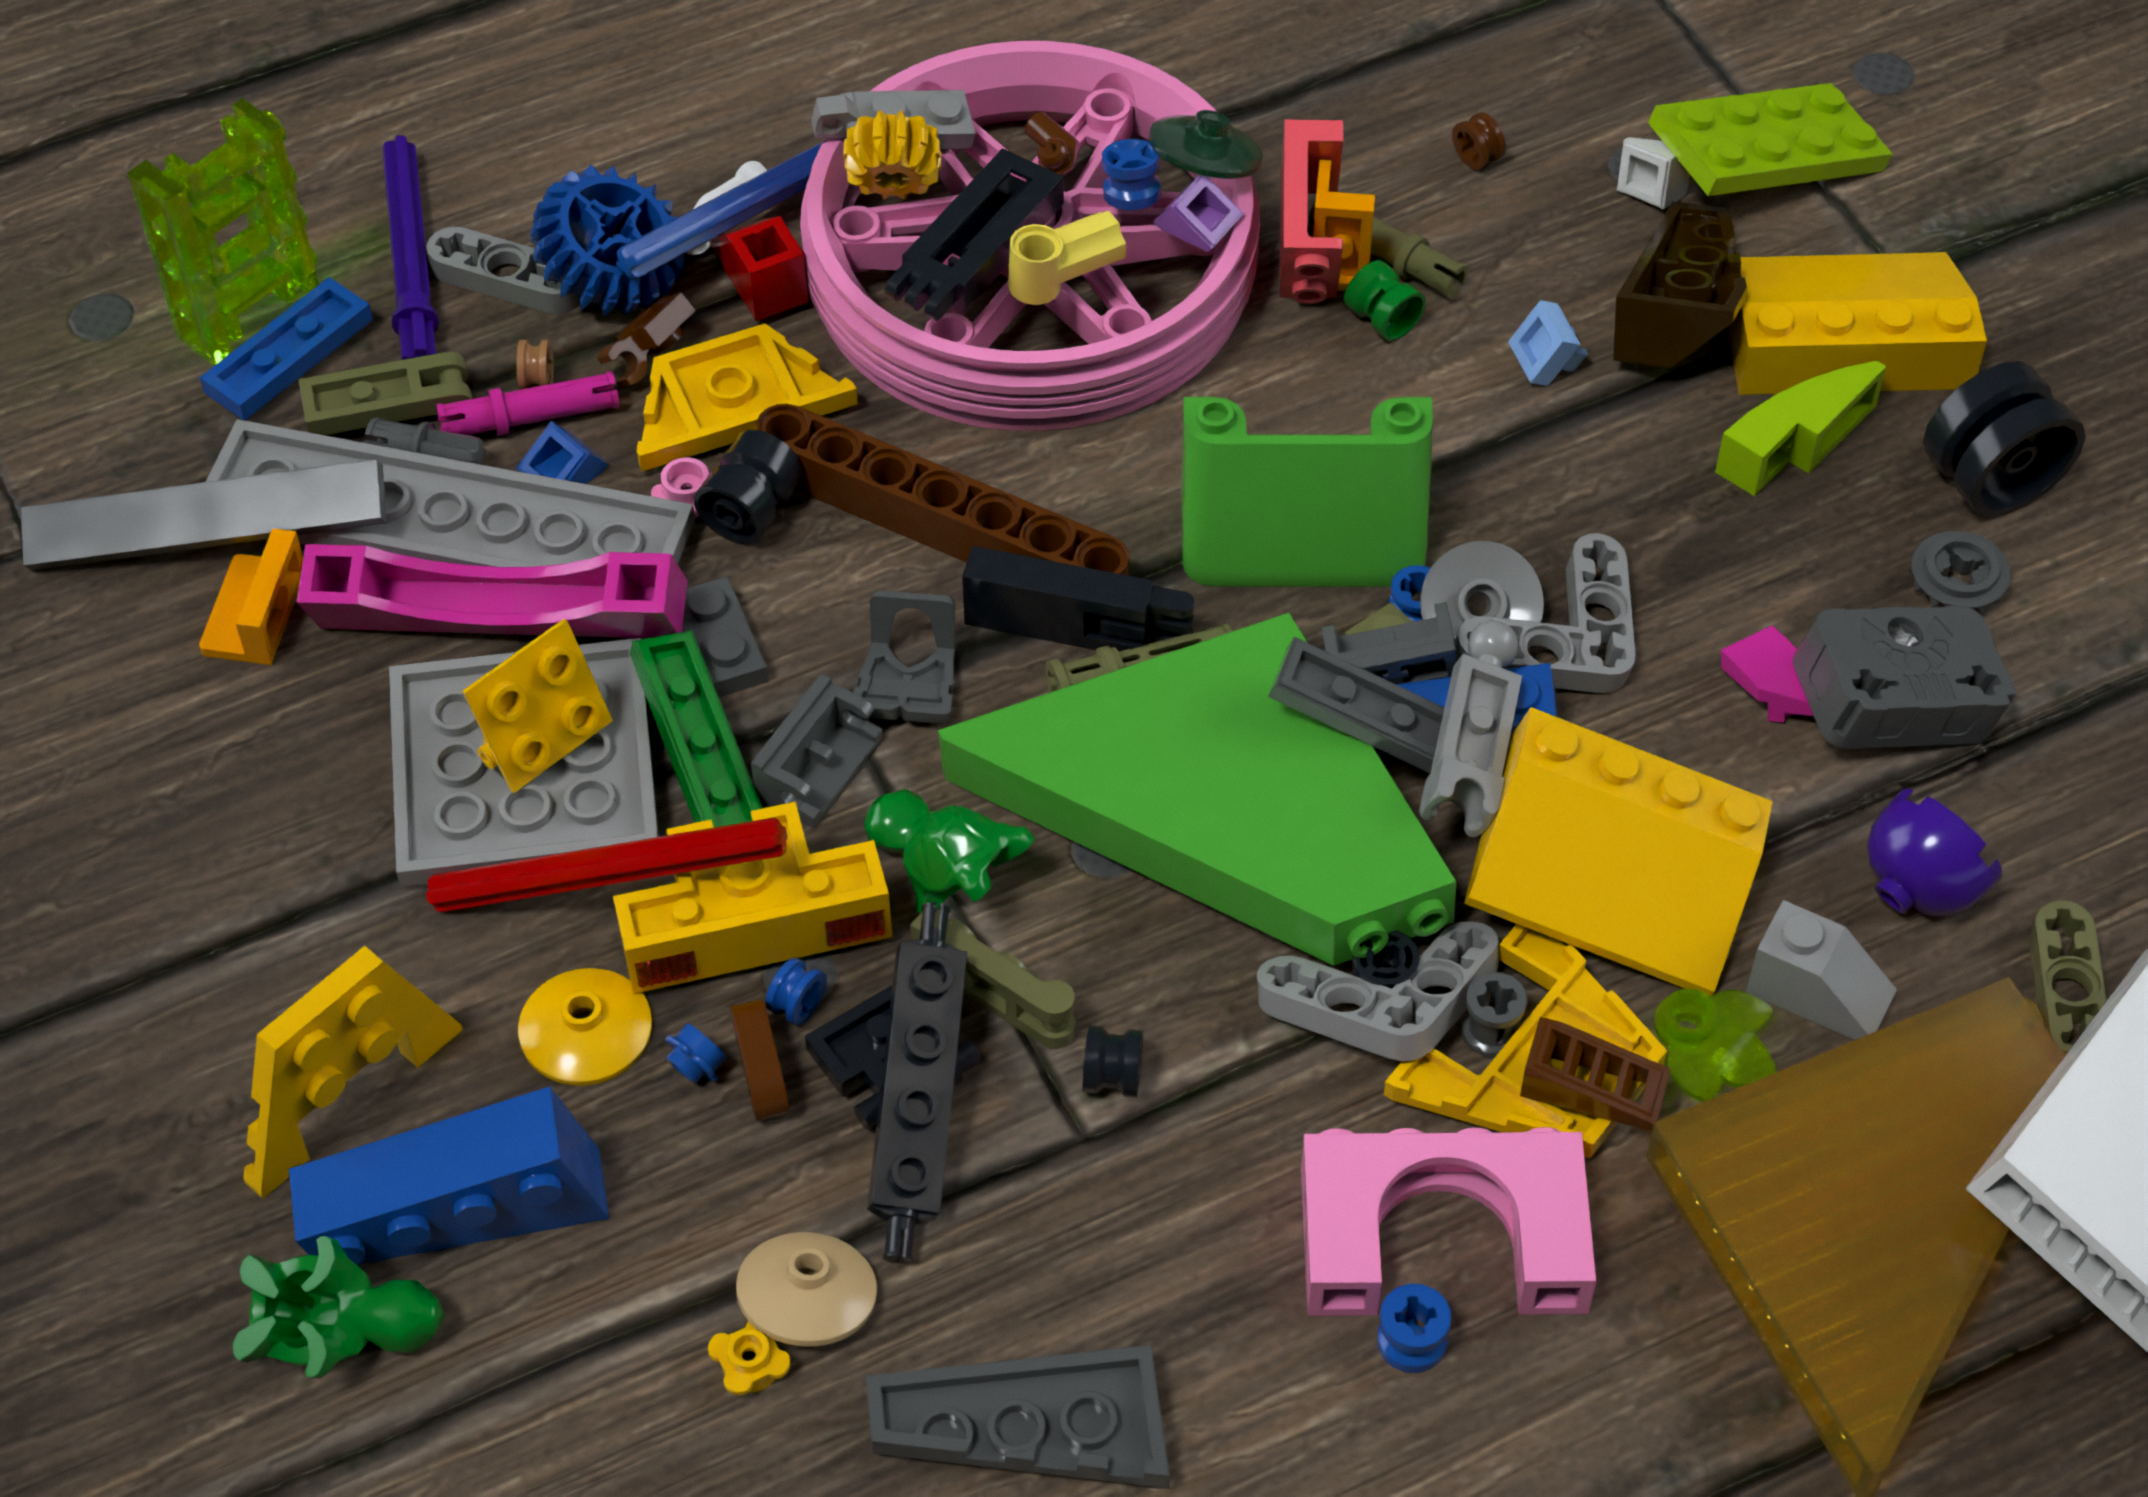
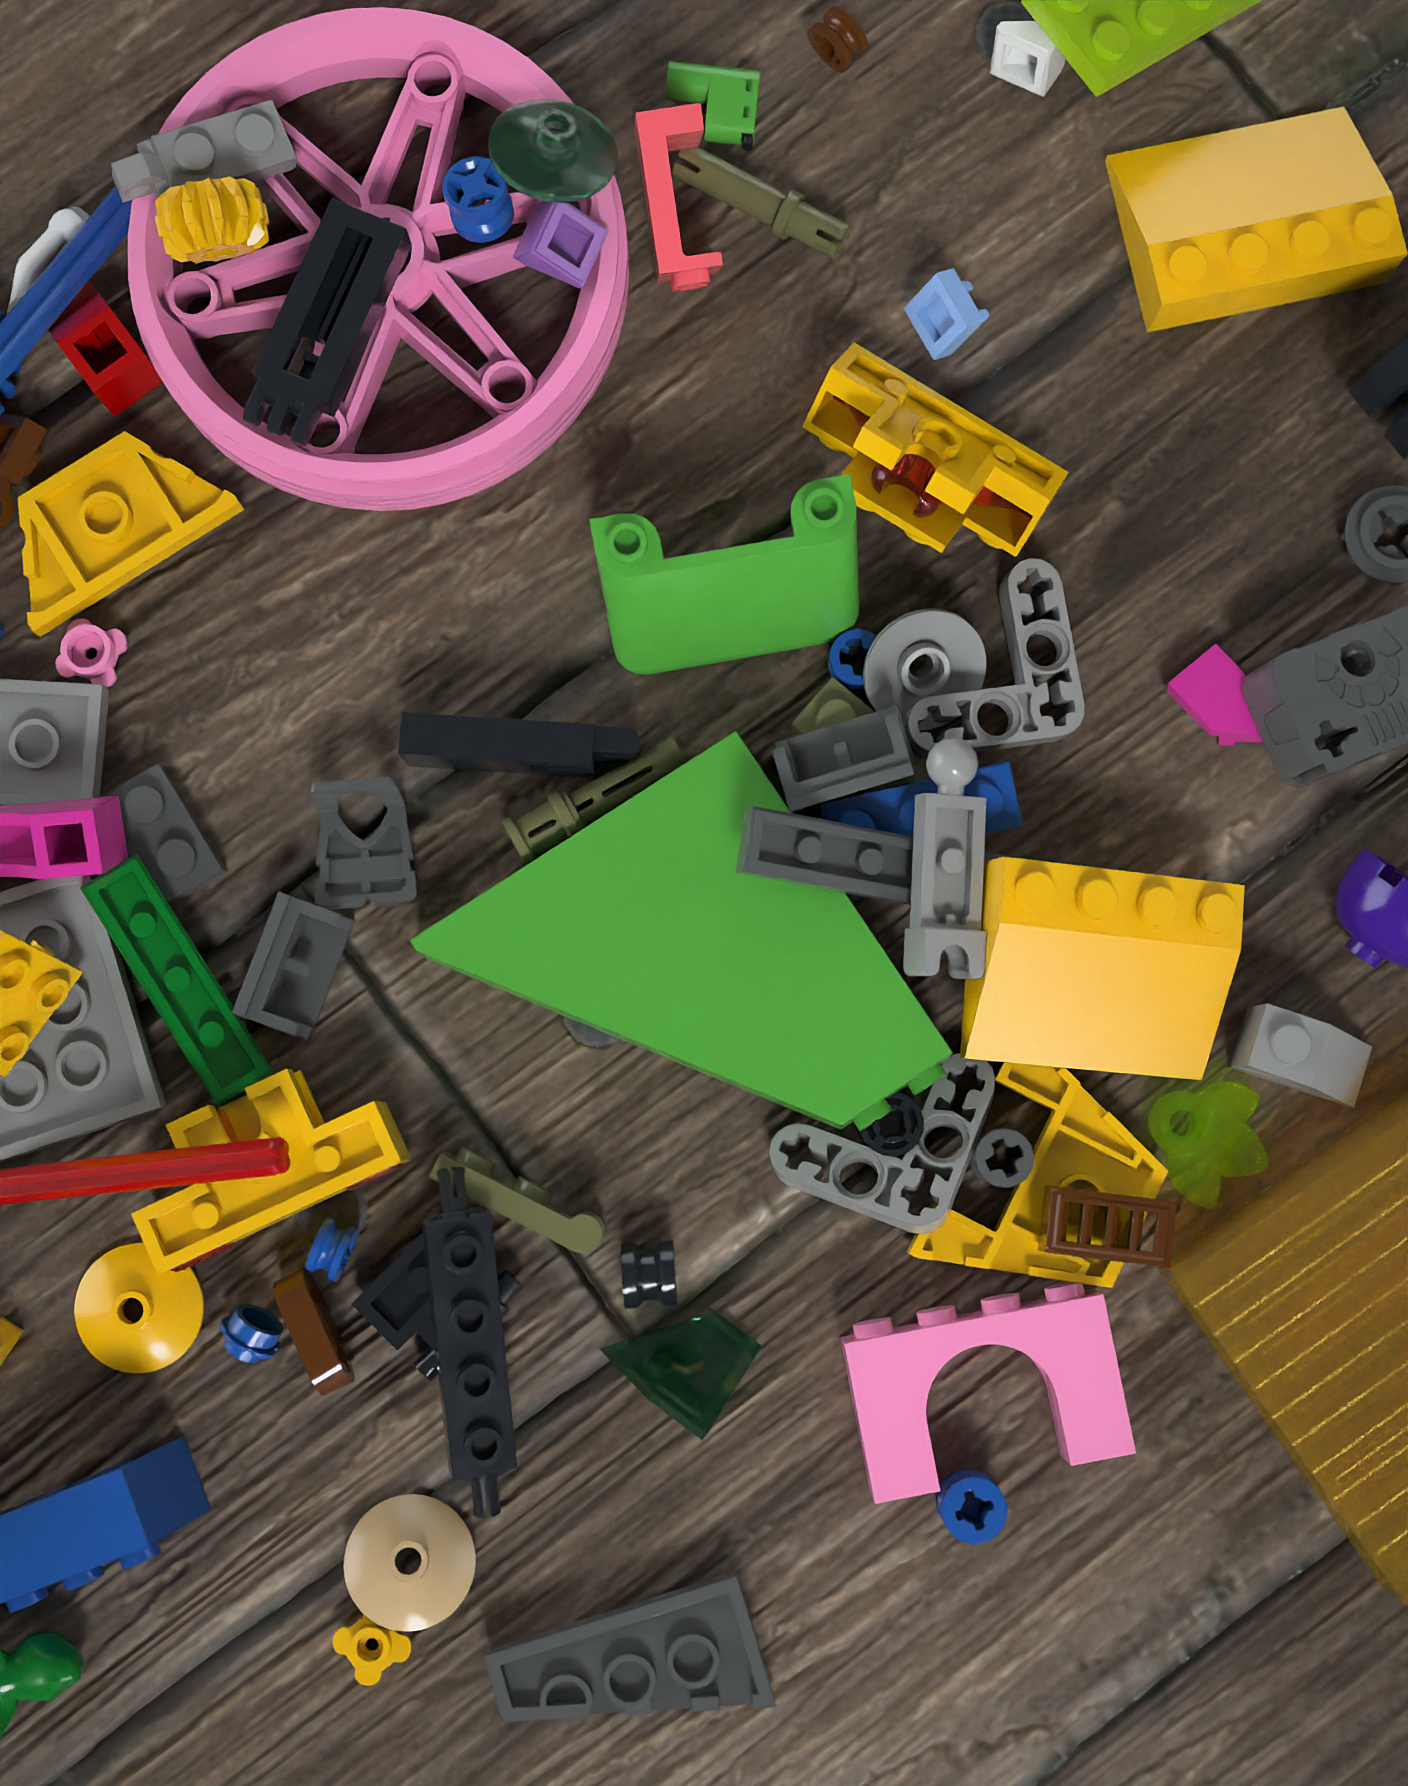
camera: 10 degrees left, 30 degrees up
(748, 486) = (155, 651): black wheel -> none
(929, 499) = (332, 624): reddish brown beam -> none
(942, 846) = (446, 1068): green animal -> none
(1049, 256) = (430, 329): light yellow piece -> none
(1057, 147) = (392, 159): reddish brown arm -> none
(1140, 1165) = (687, 1367): none -> clear green slope
(1344, 217) = (713, 216): light orange panel -> none
(1372, 171) = (729, 97): none -> bright green piece
(1387, 302) = (769, 283): green wheel -> none
(1519, 439) = (928, 458): none -> yellow piece
(1680, 288) = (1086, 214): dark brown wedge -> none
(1798, 425) = (1217, 380): lime slope -> none

